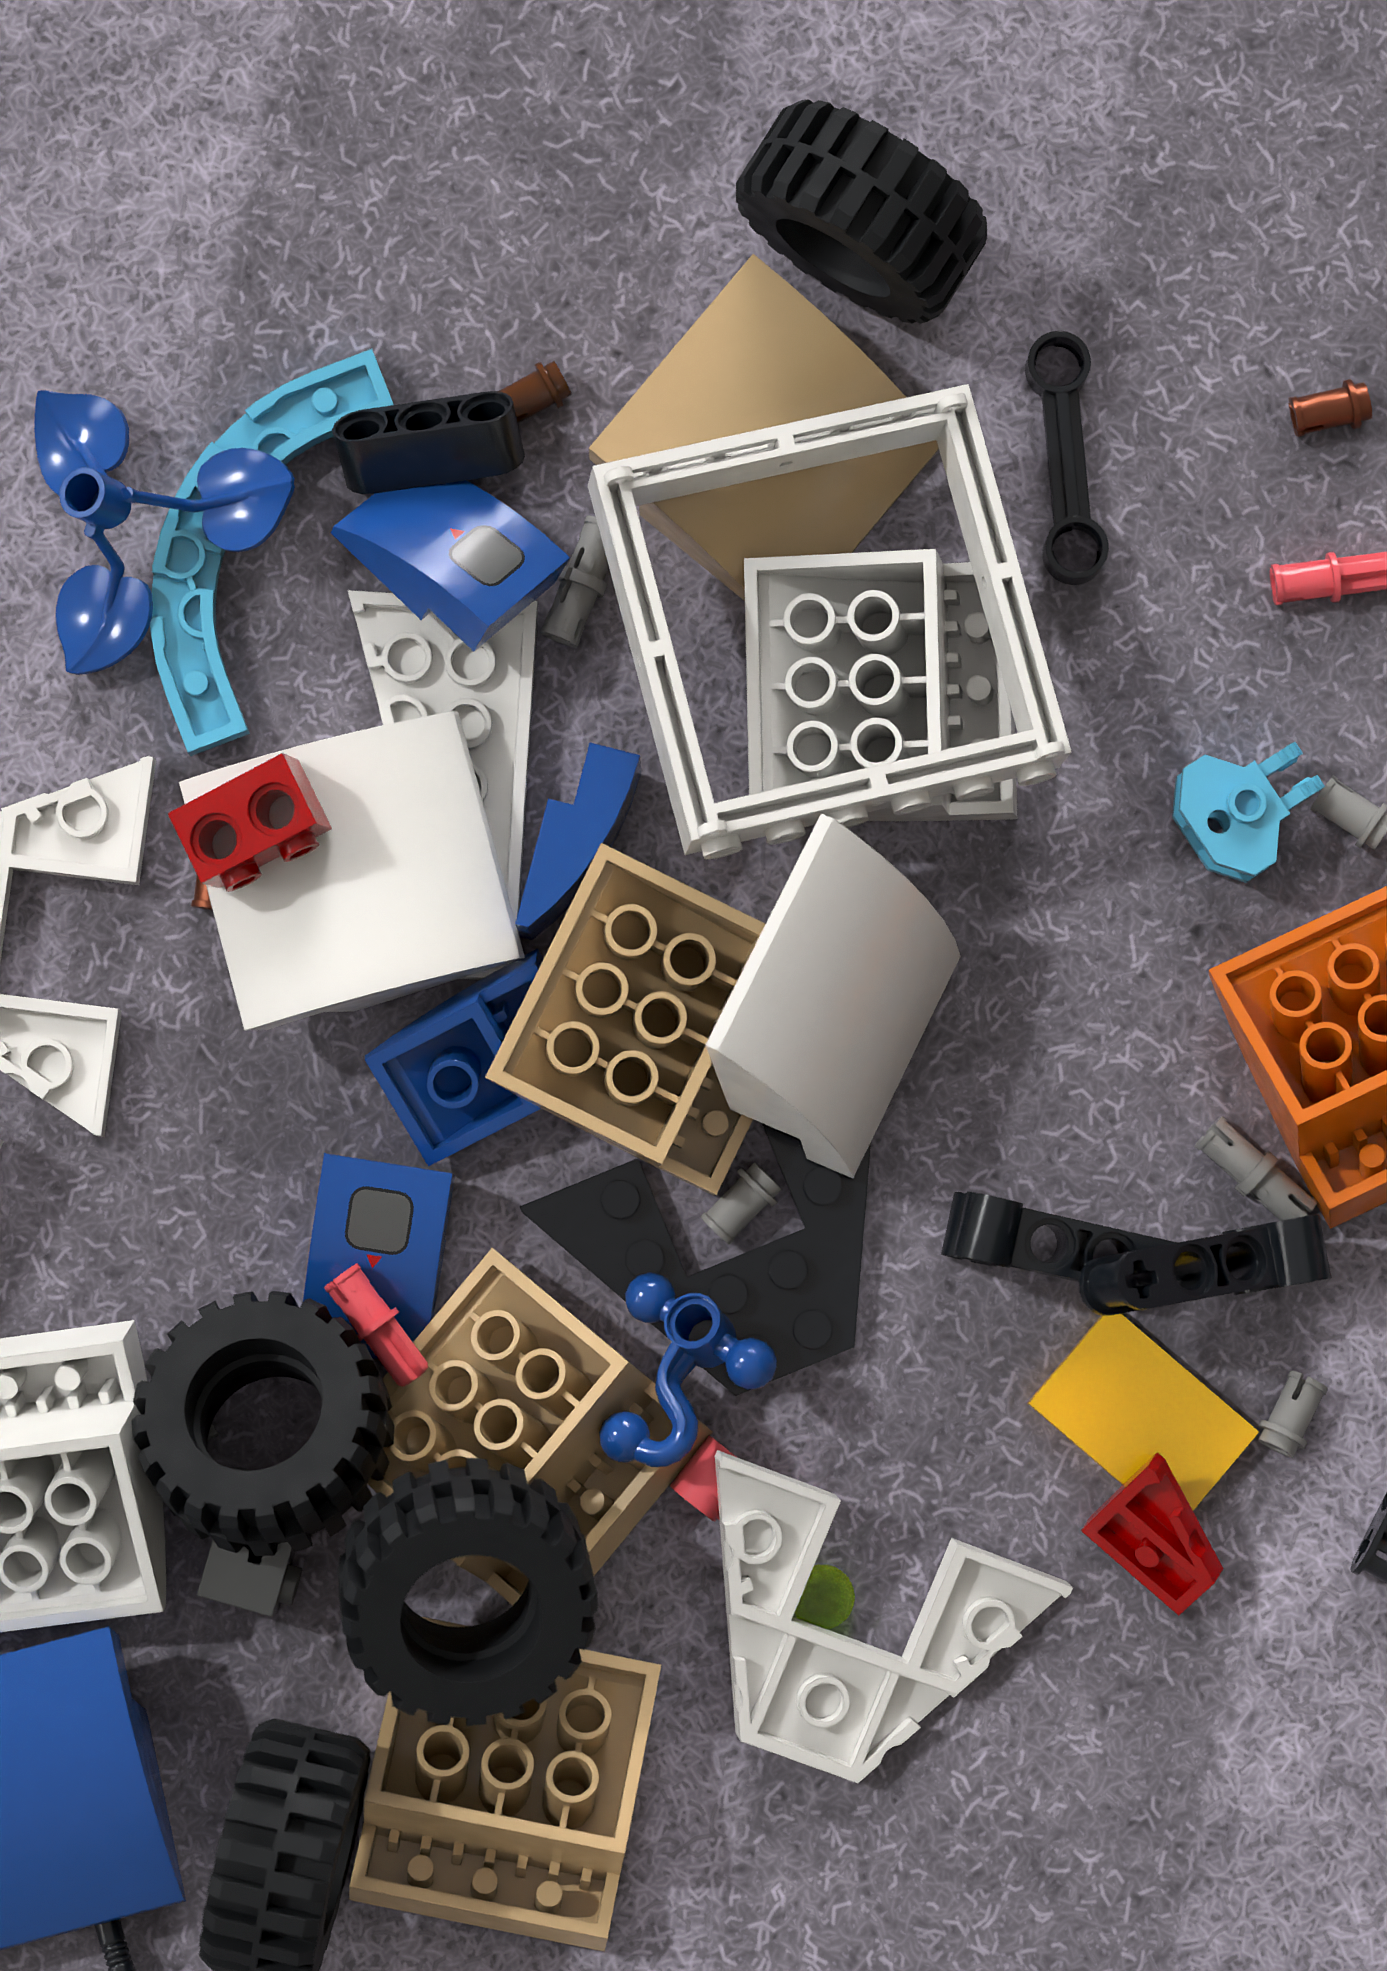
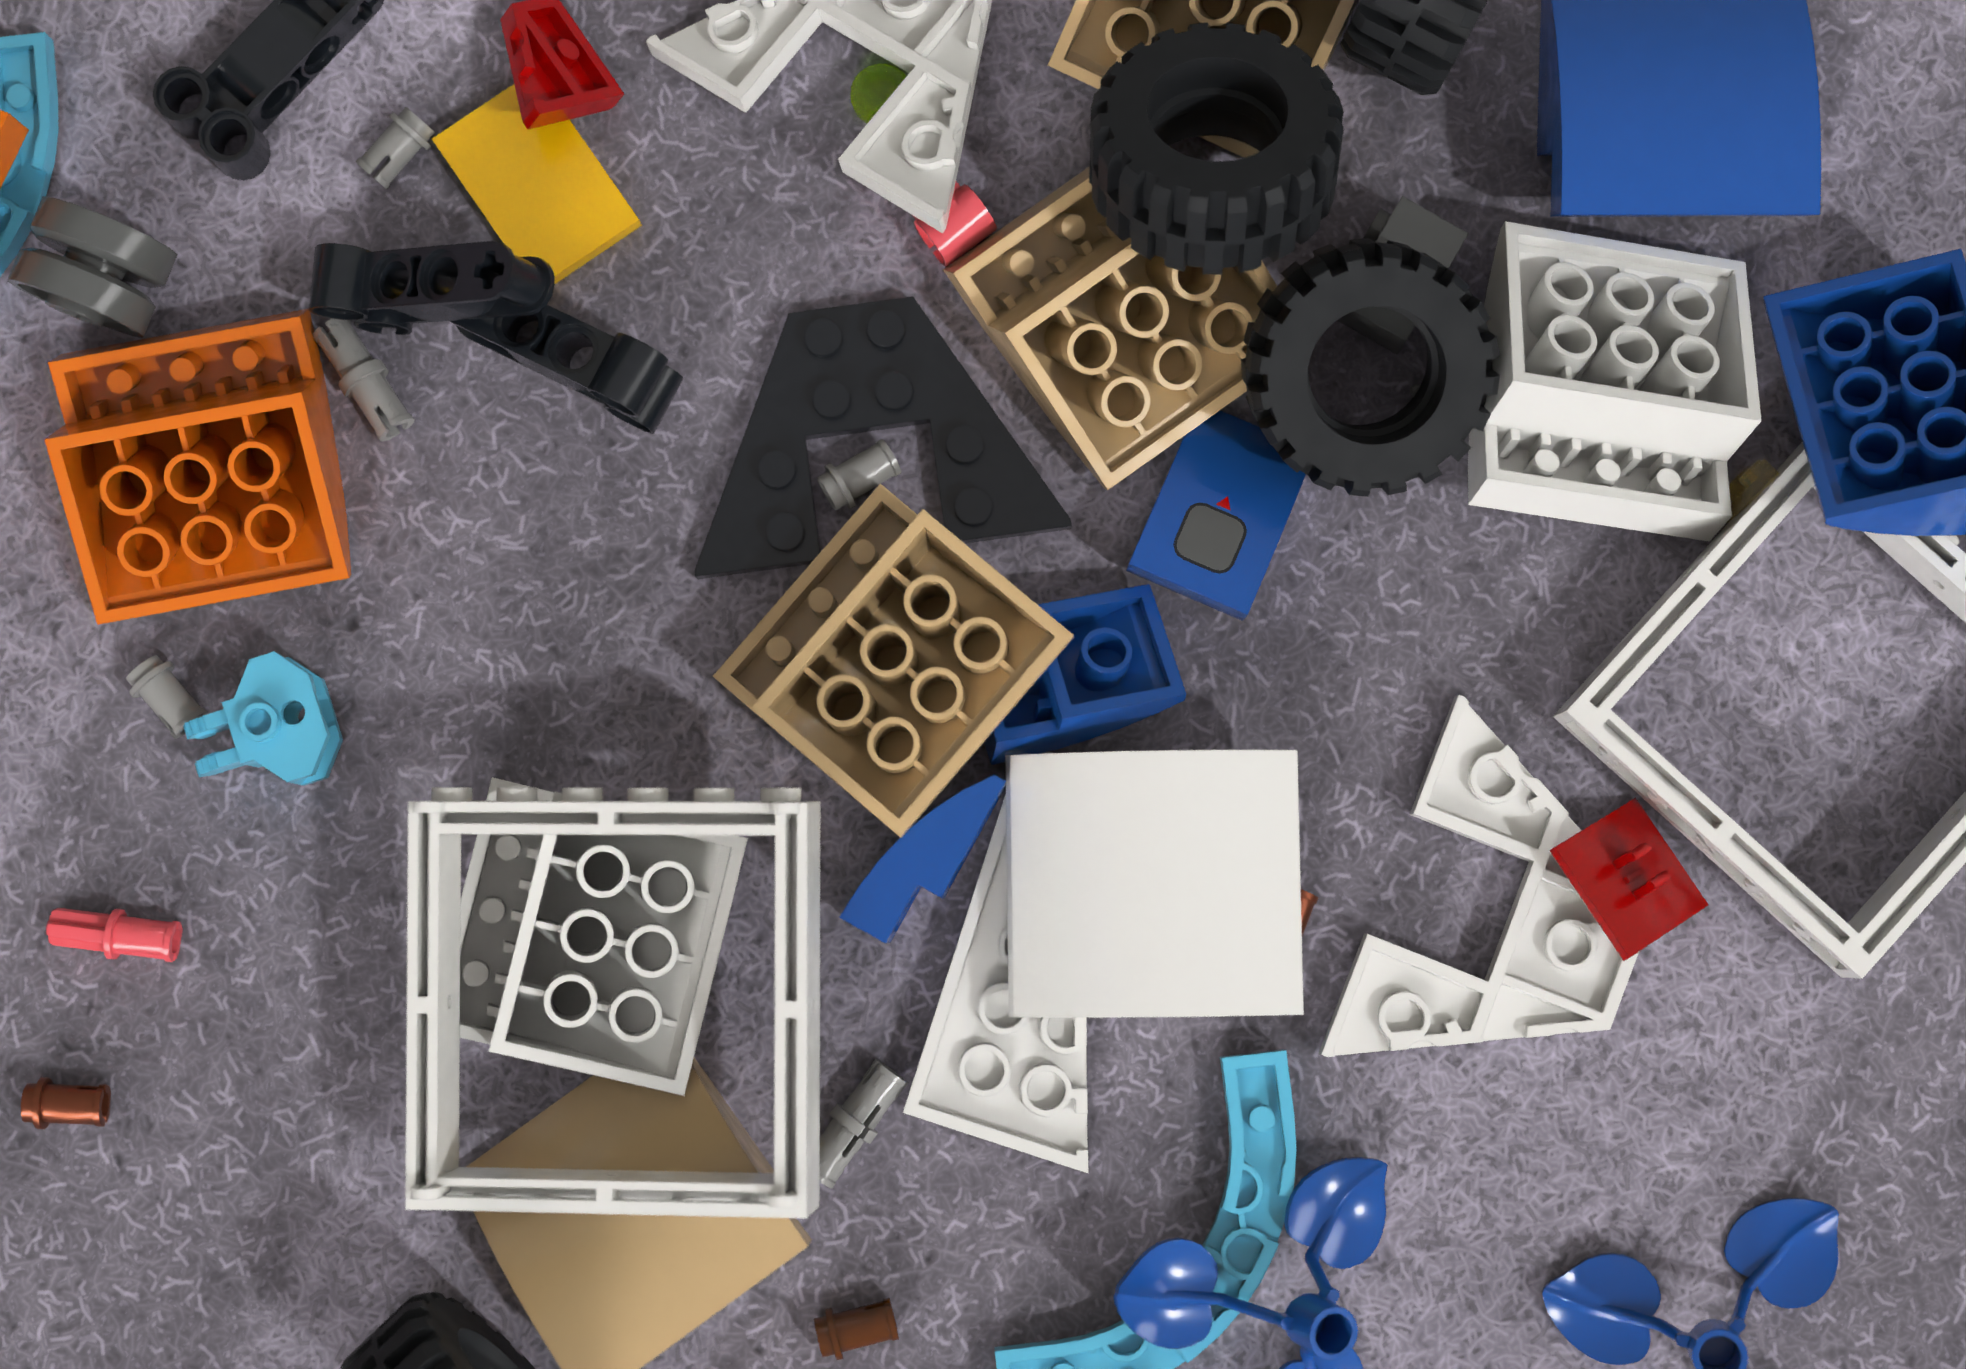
camera: 160 degrees left, 0 degrees up
(246, 807) = (1244, 960): red brick -> none
(377, 1325) = (1237, 439): coral axle -> none
(429, 442) = (969, 1303): black beam -> none
(453, 555) = (975, 1185): blue slope -> none
(748, 1365) = (891, 306): blue piece -> none
(833, 999) = (712, 626): white slope -> none
(1066, 456) = (340, 1125): black piece -> none

